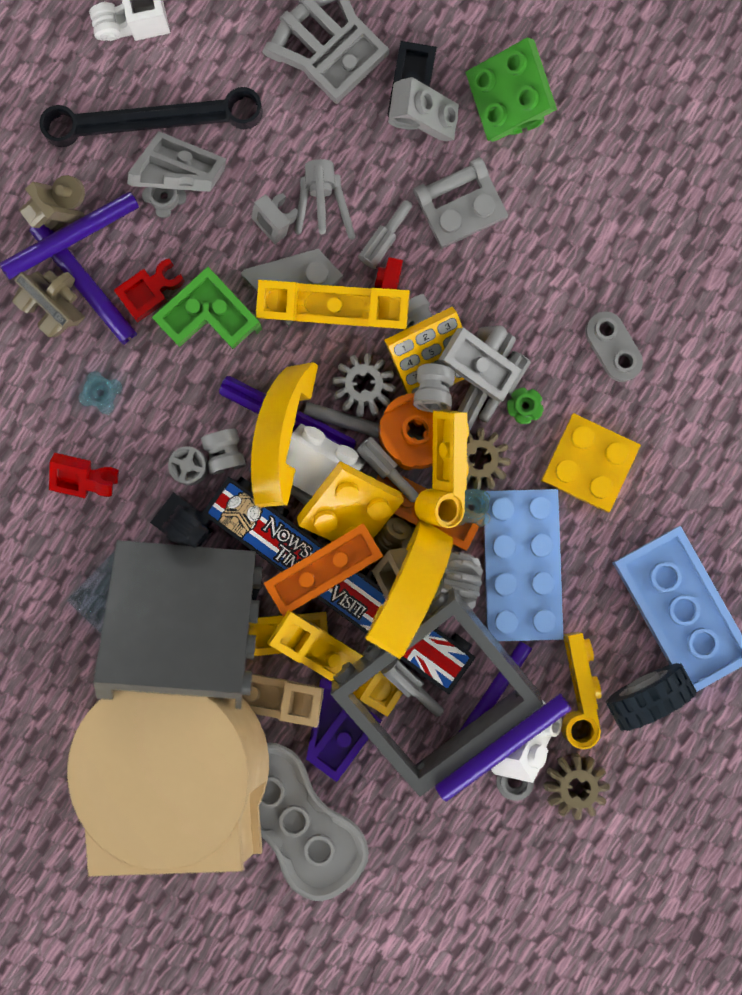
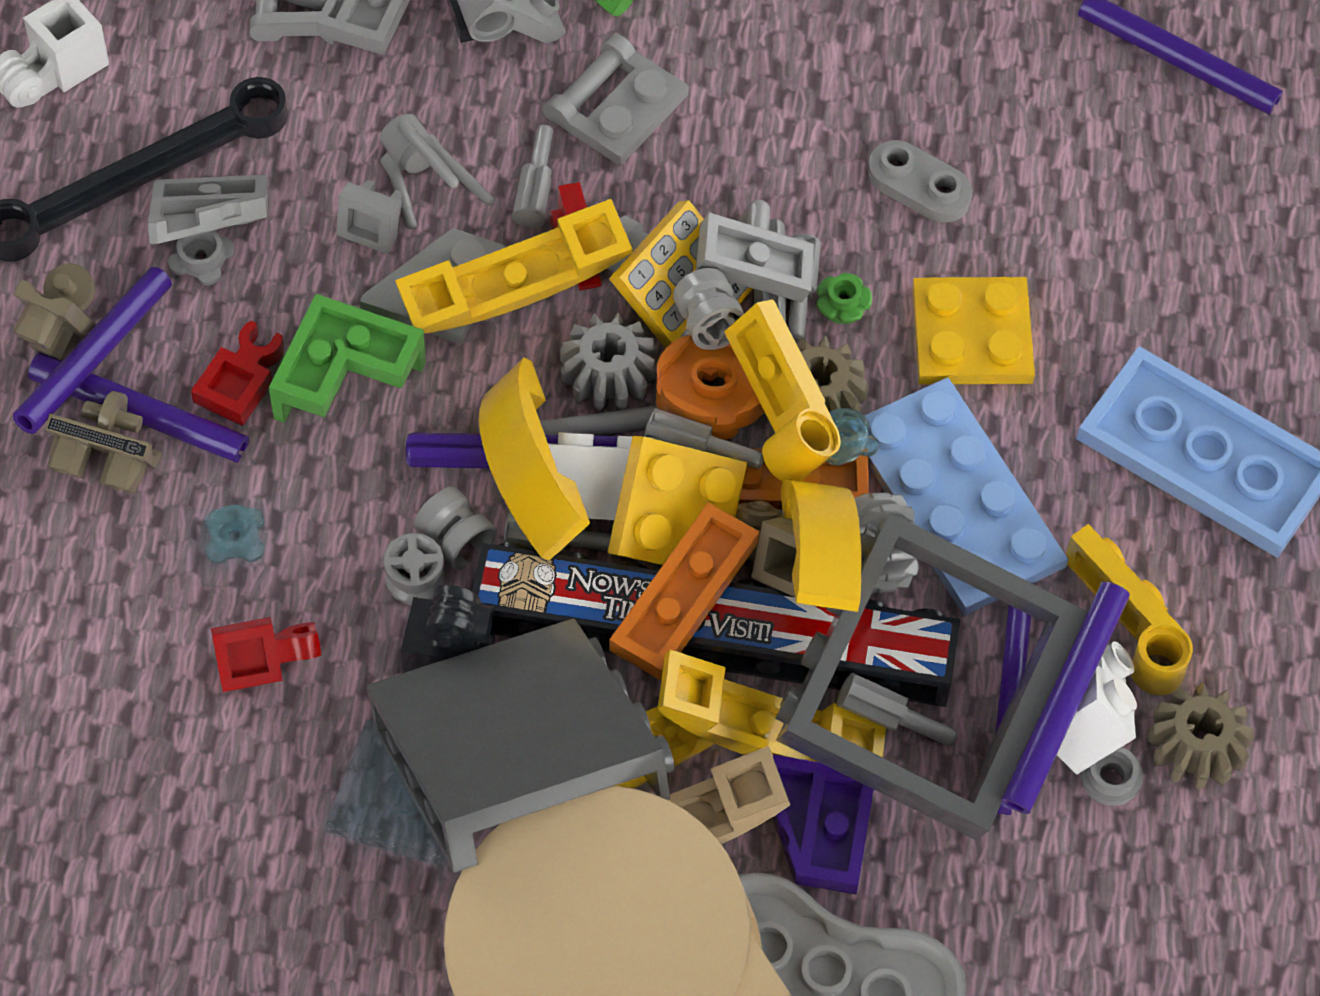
camera: 25 degrees left, 25 degrees down
(651, 697) = (1228, 558): black wheel -> none

